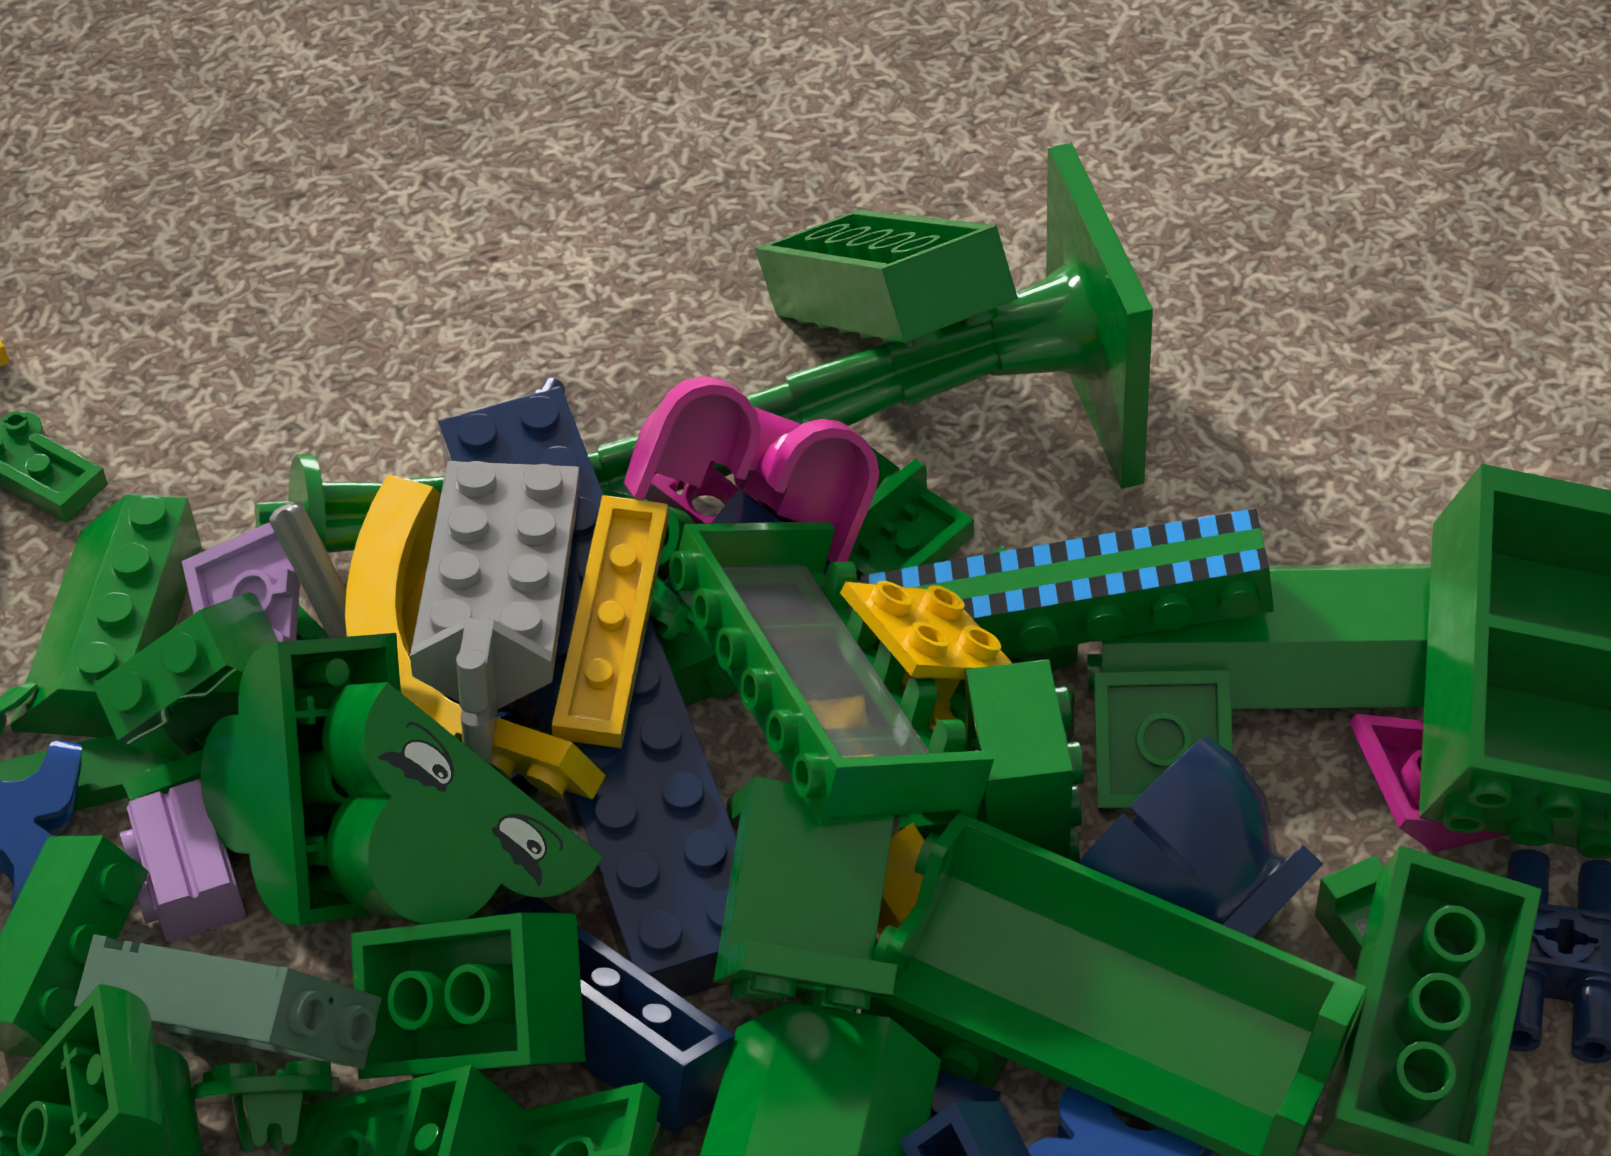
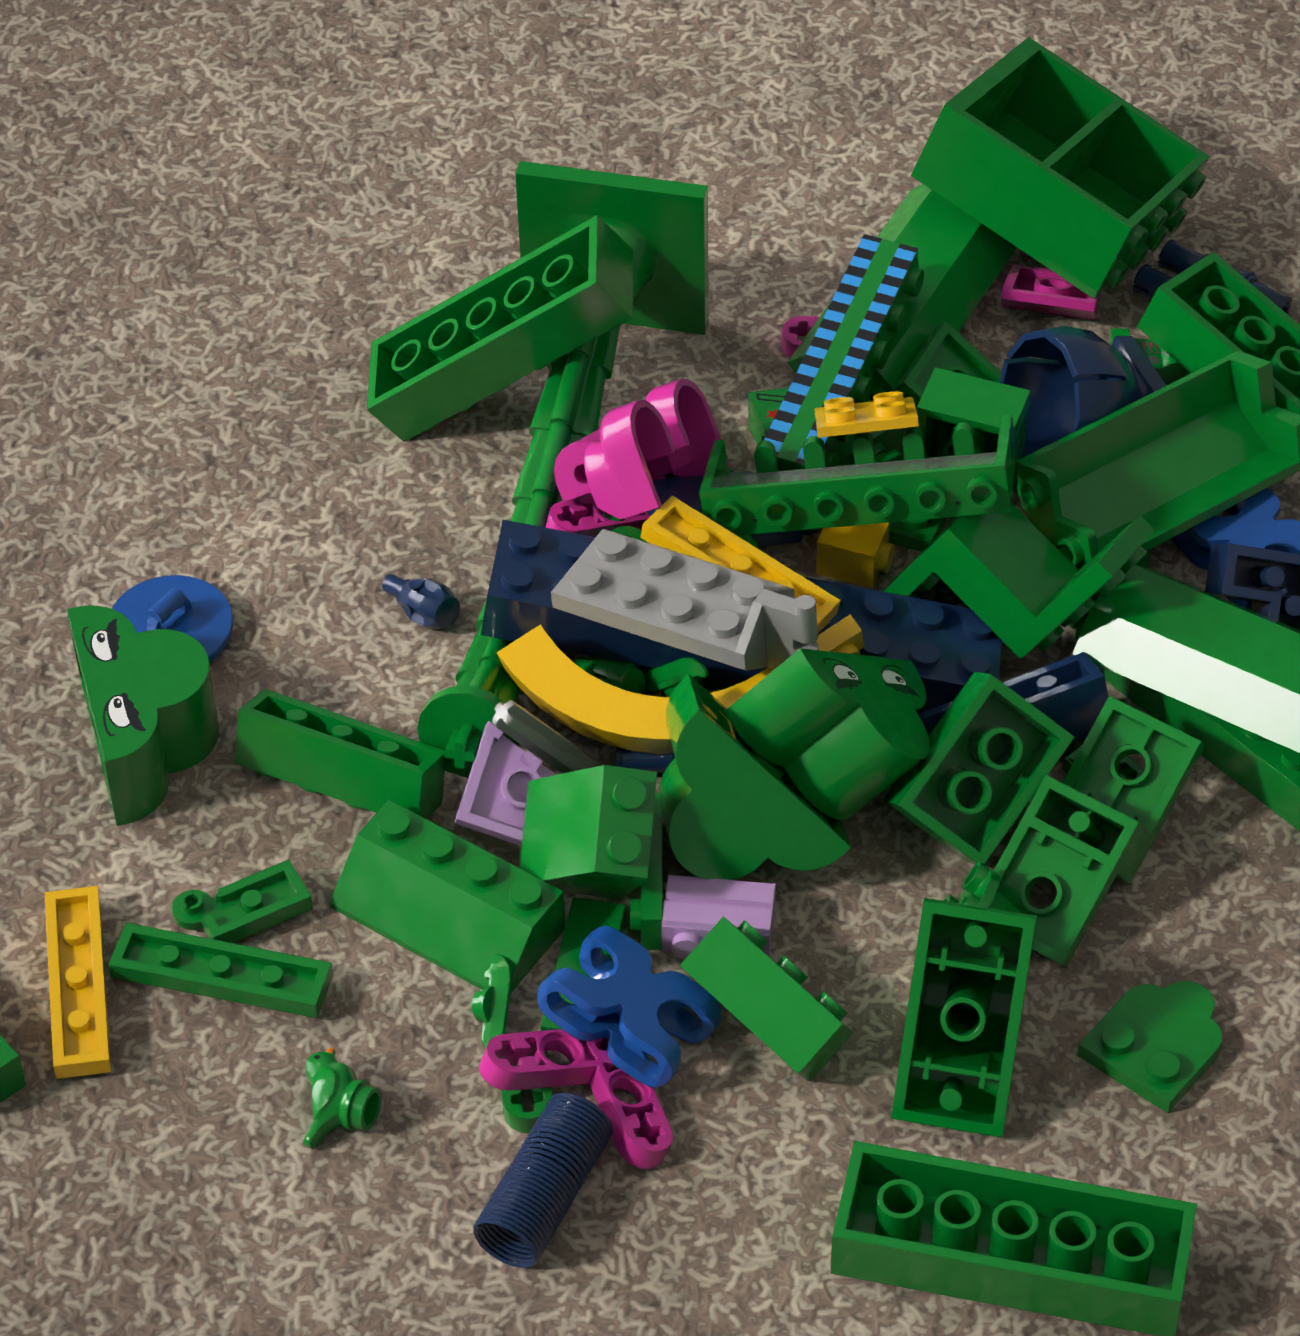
camera: 65 degrees left, 0 degrees up
(220, 265) = (145, 704): none -> green brick
(238, 1000) = (897, 898): sand green door -> none
(250, 434) = (338, 755): none -> green brick
(393, 252) = (182, 606): none -> blue shield

